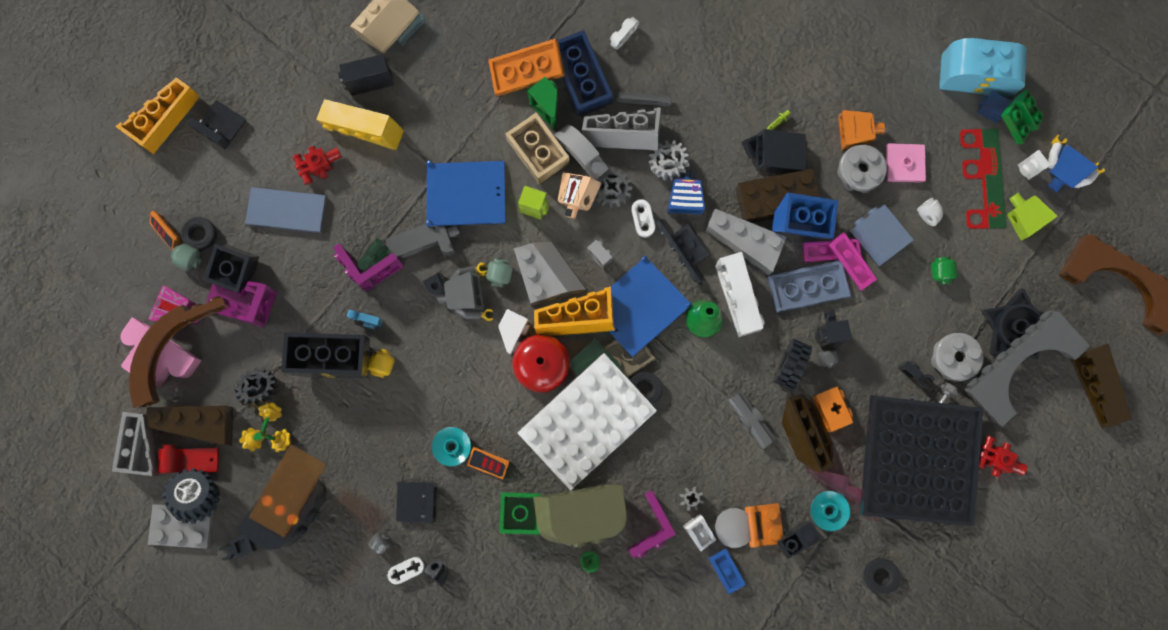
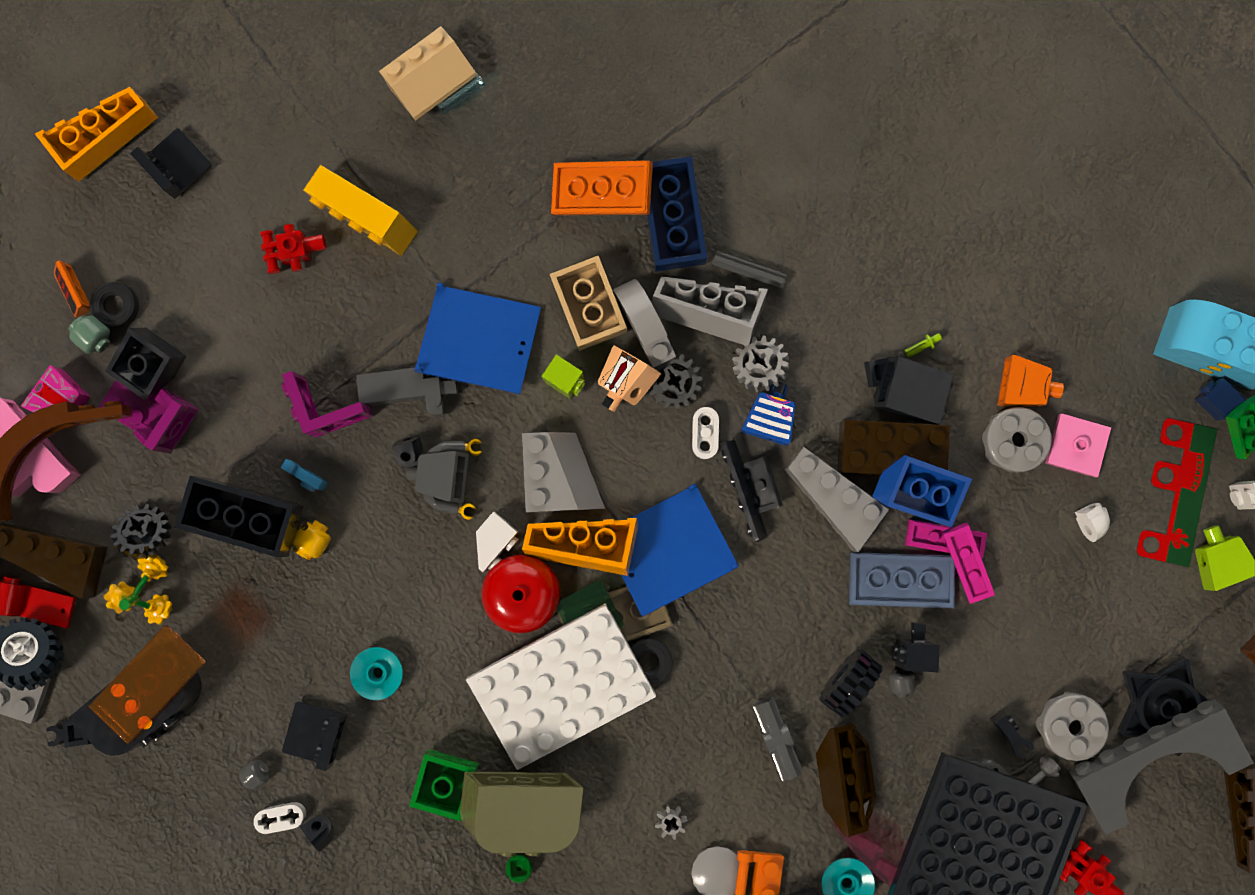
camera: 15 degrees right, 5 degrees up
(286, 210) = (236, 301): sand blue tile -> none
(365, 75) = (383, 145): black brick -> none
(374, 254) = (339, 393): clear green plate -> none
(488, 463) = (420, 706): slope -> none
(499, 272) = (496, 458): sand green head -> none
(544, 100) = (615, 240): green slope -> none
(599, 254) = (634, 467): light grey piece -> none
(628, 28) = (754, 164): white plate -> none
(657, 539) = (610, 864): magenta bracket -> none
(699, 532) = (670, 867): white slope -> none
(704, 318) = (741, 583): green cone -> none
(739, 294) = (806, 571): white wedge -> none
(826, 401) = (879, 740): orange brick -> none
(881, 234) = (1017, 537): sand blue brick -> none
(944, 270) = (1088, 605): green head -> none

